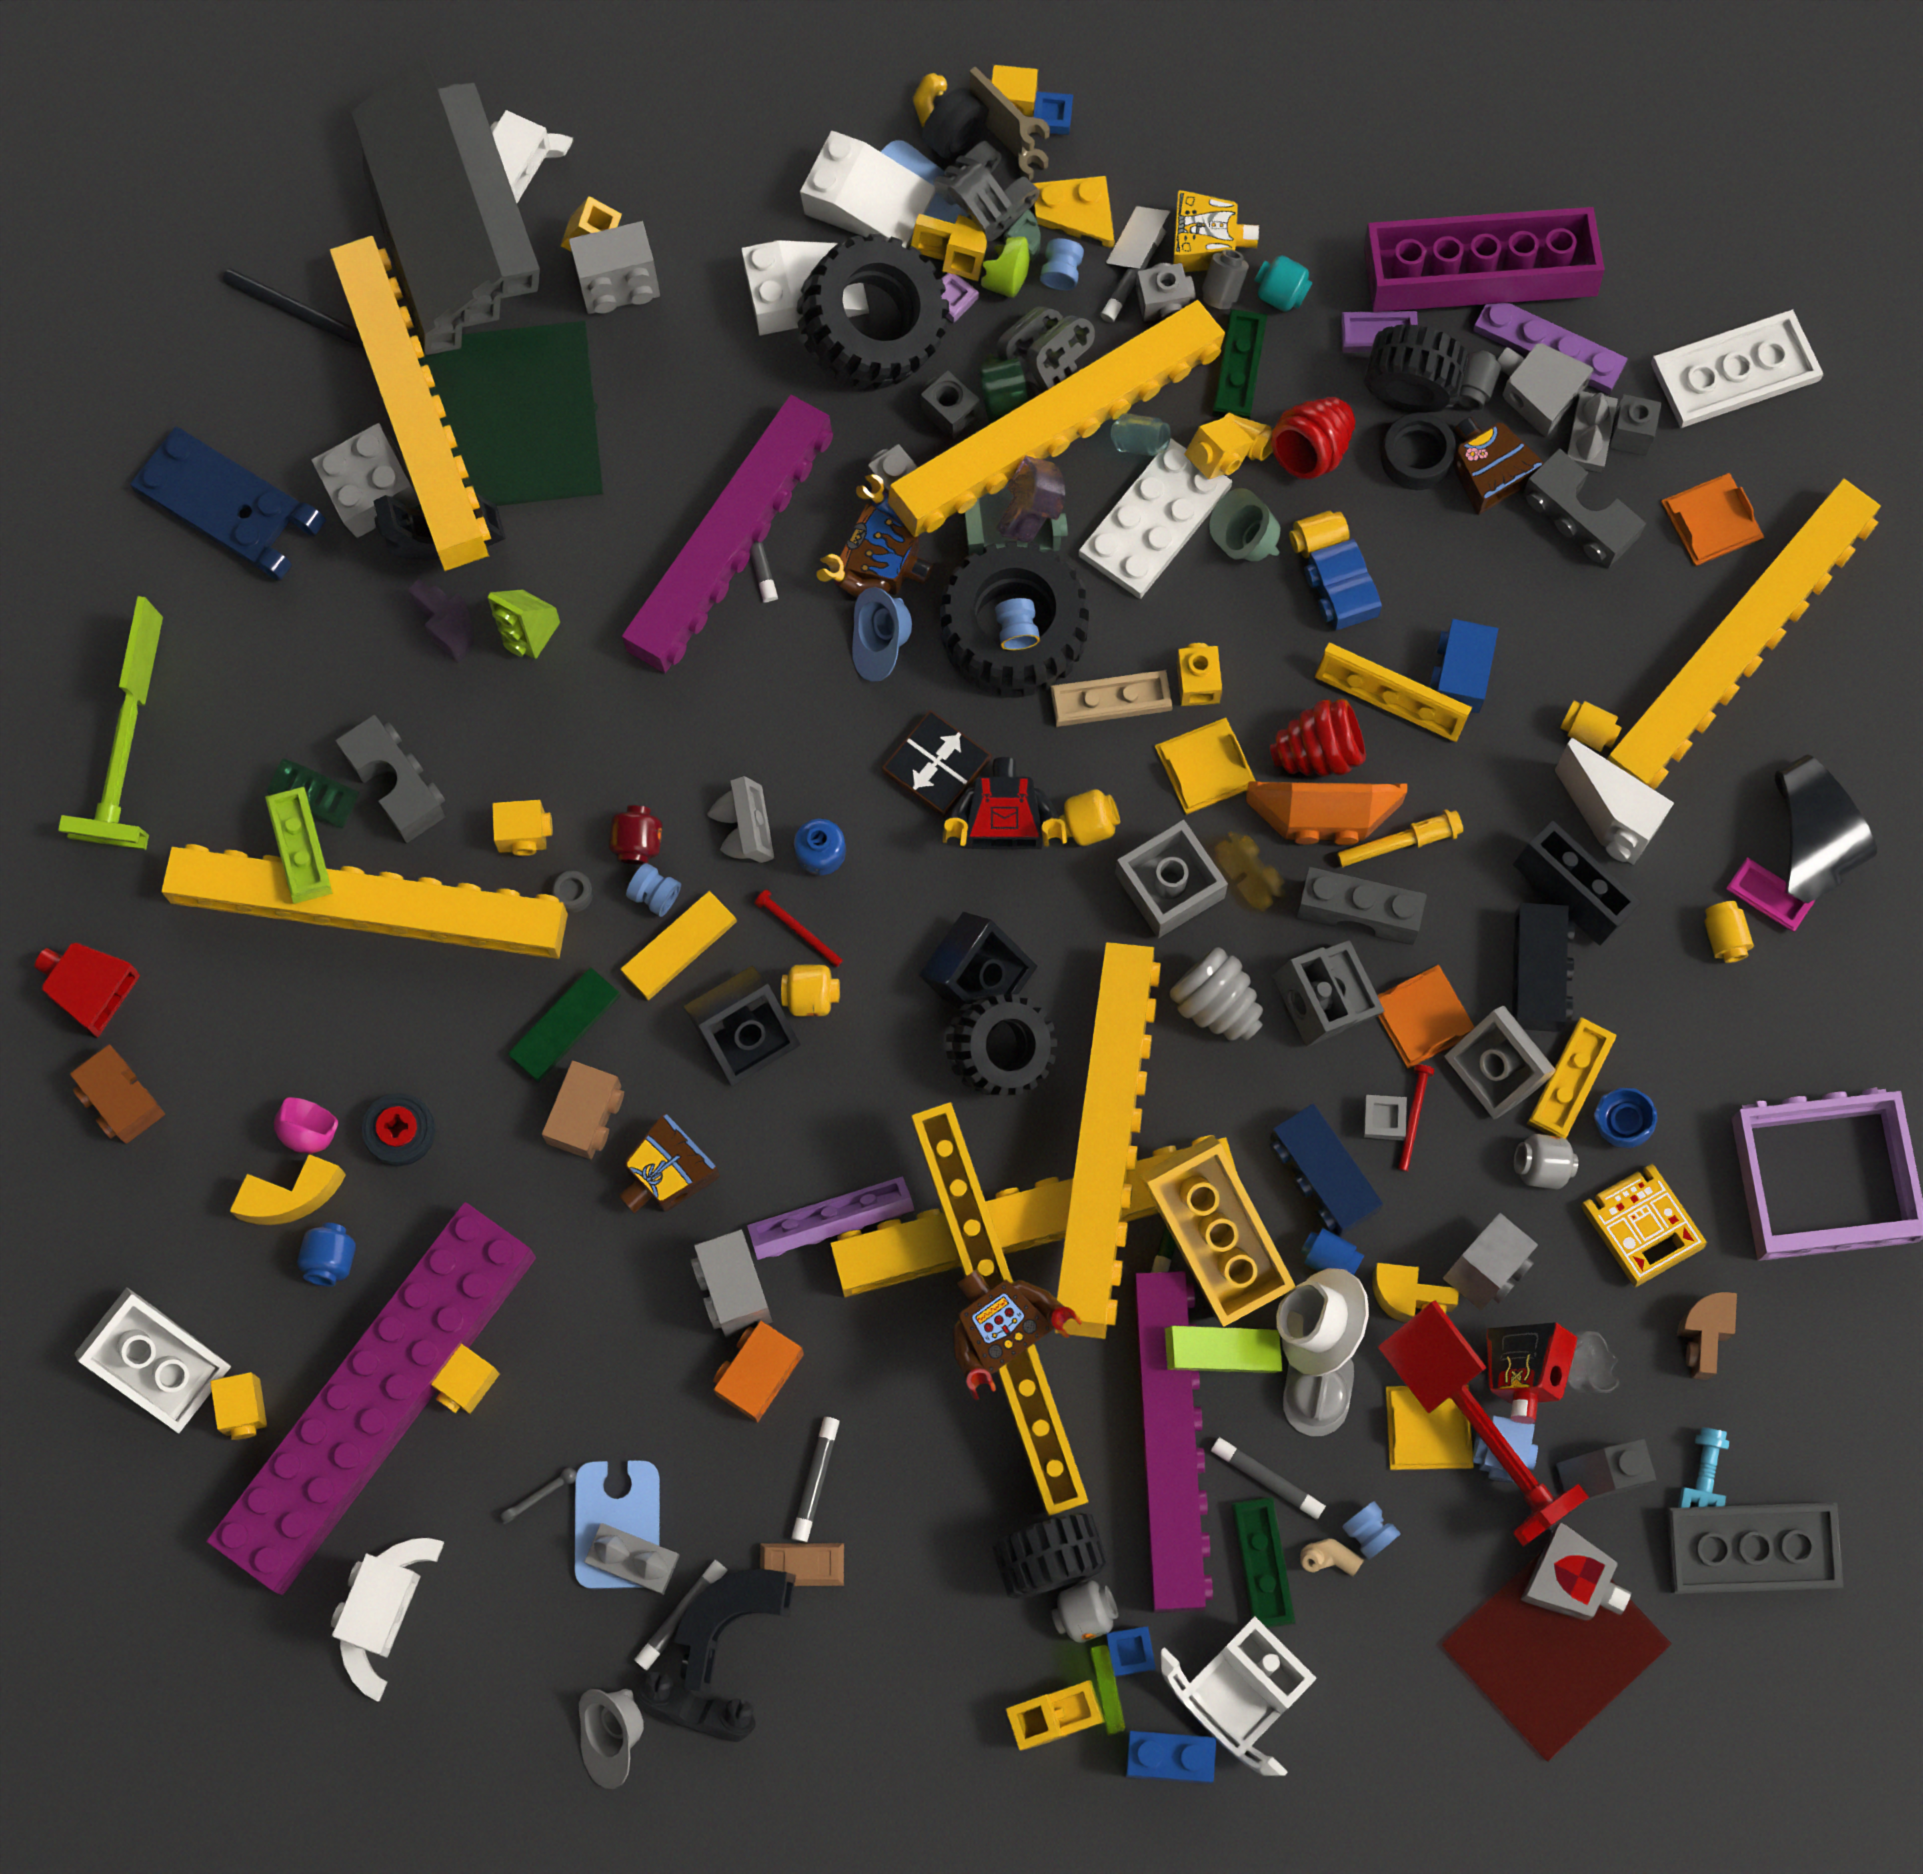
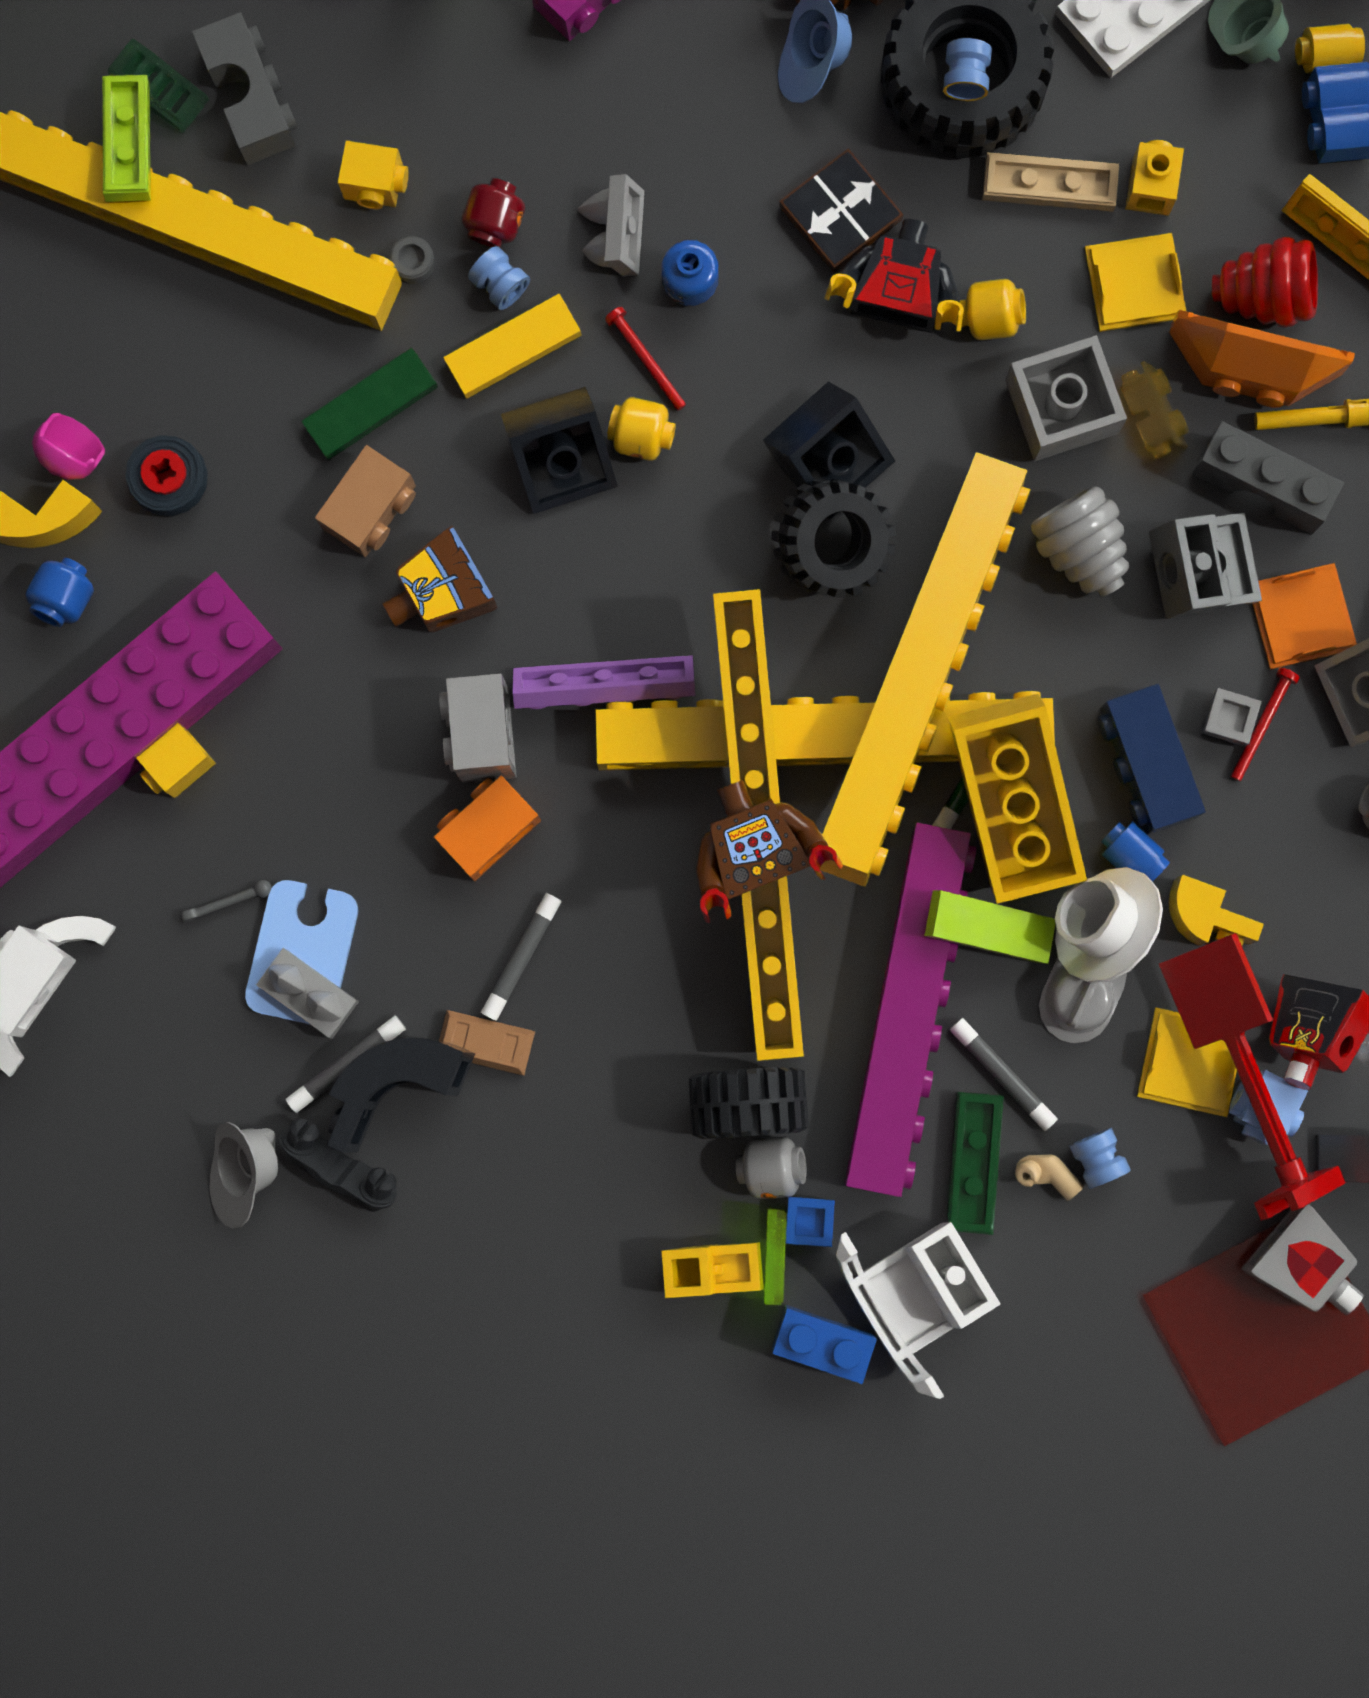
camera: 20 degrees right, 10 degrees up
(1490, 1263) = (1308, 904): flat silver brick -> none

